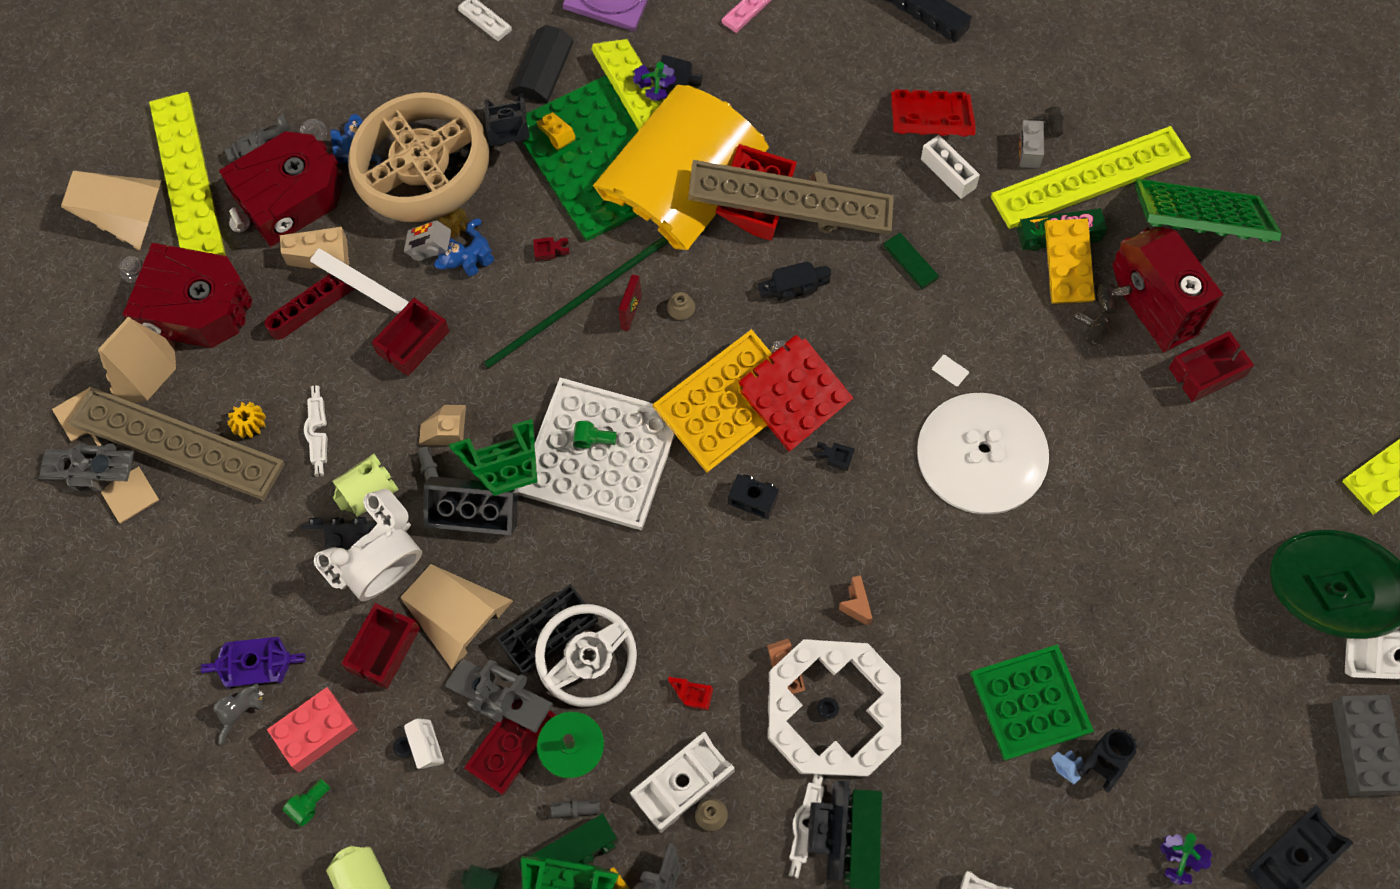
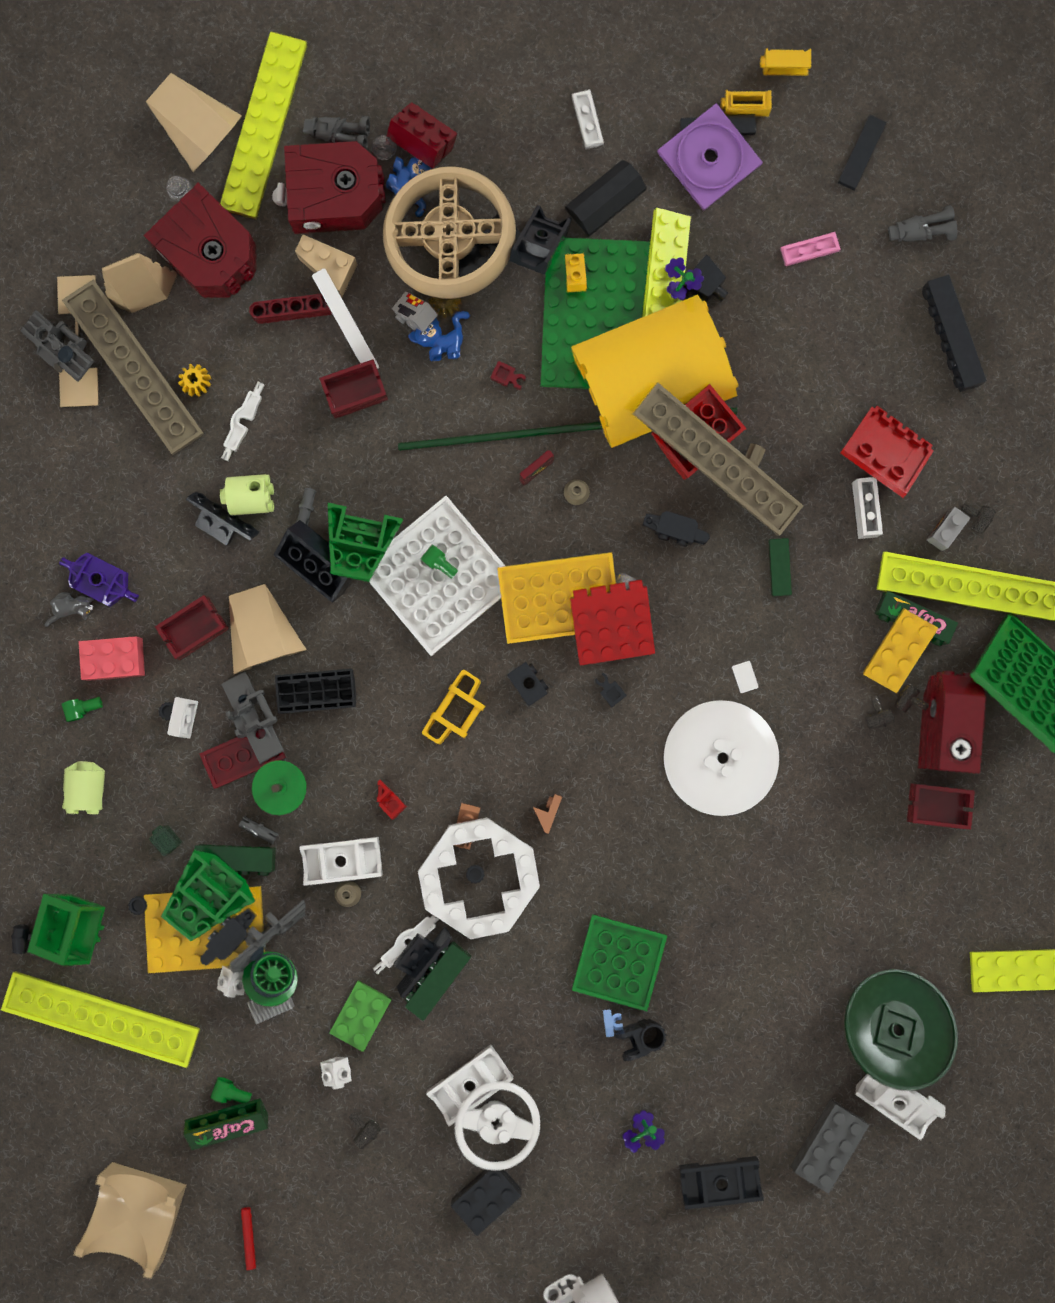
camera: 30 degrees right, 20 degrees up
(342, 101) = (421, 135): none -> dark red piece
(376, 558) = (222, 562): white piece -> none
(443, 426) = (338, 478): tan slope -> none
(573, 664) = (342, 729): white piece -> none
(705, 580) = (453, 690): none -> yellow bar

